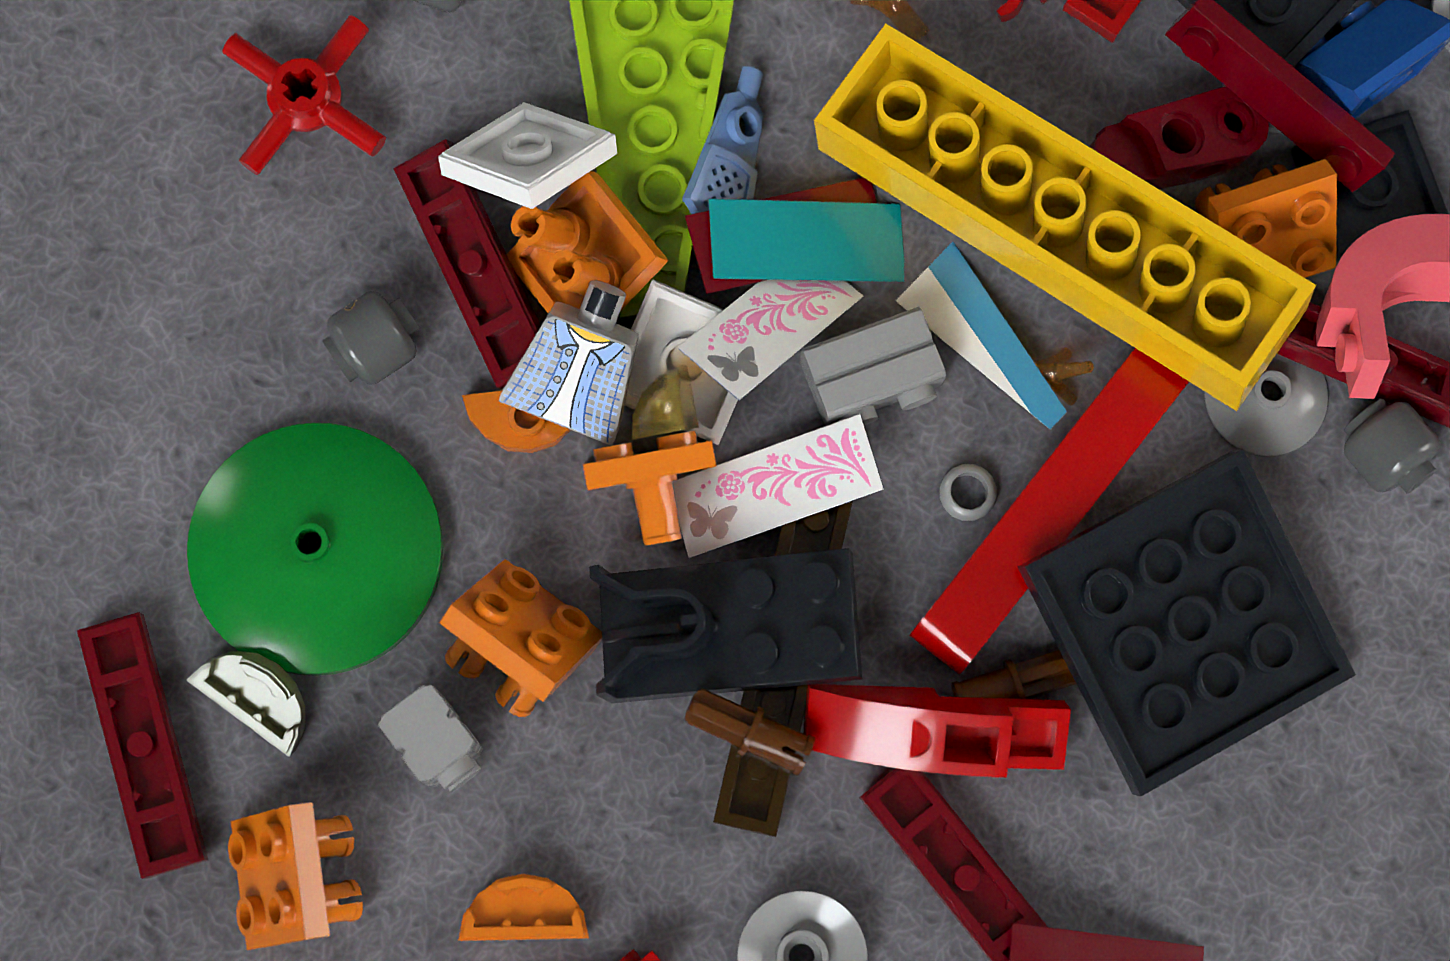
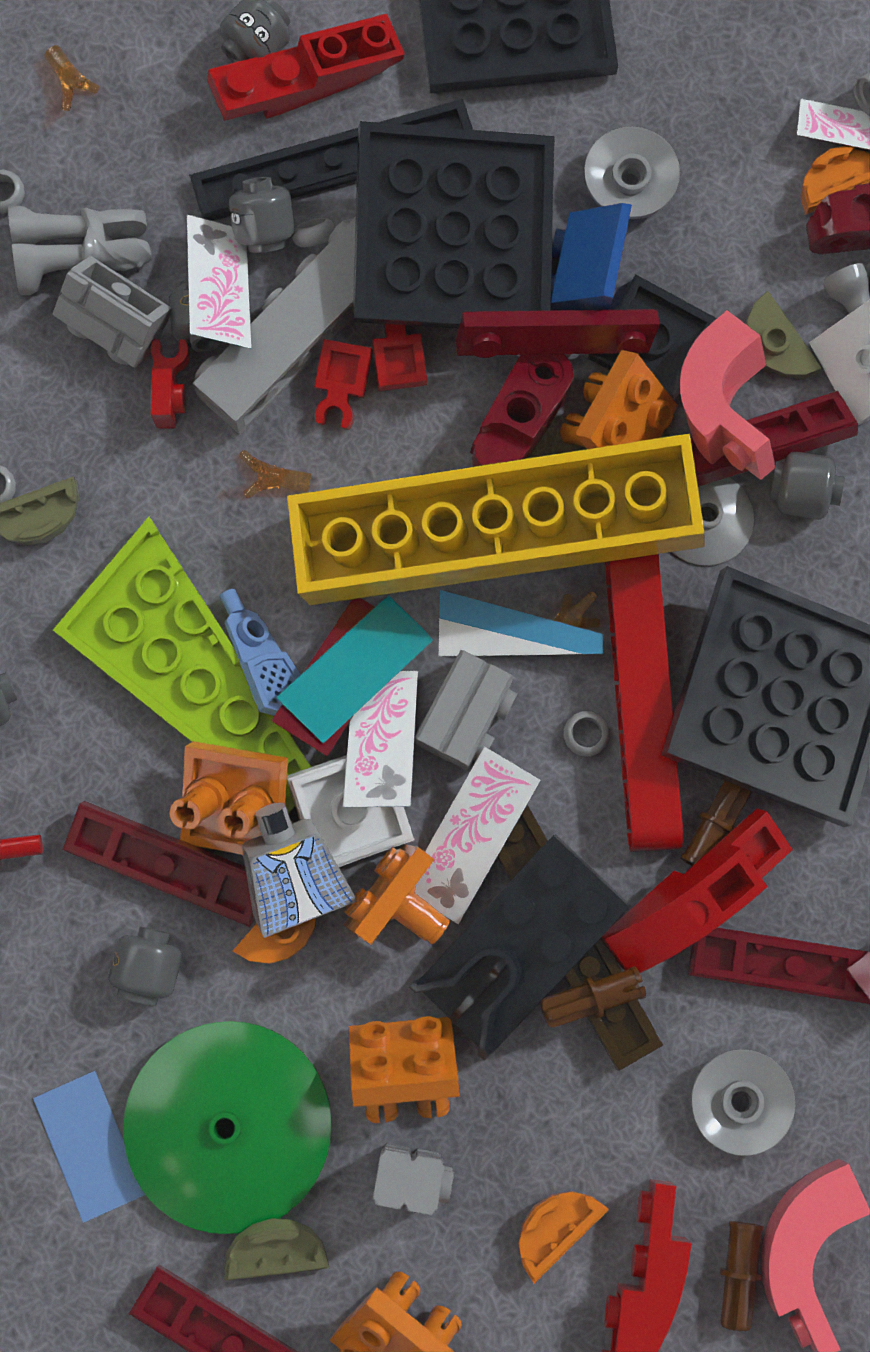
camera: 40 degrees left, 0 degrees up
(177, 453) = (88, 1146): none -> medium blue sticker
(527, 155) = (141, 769): white plate -> none
(665, 405) = (367, 849): clear yellow brick -> none

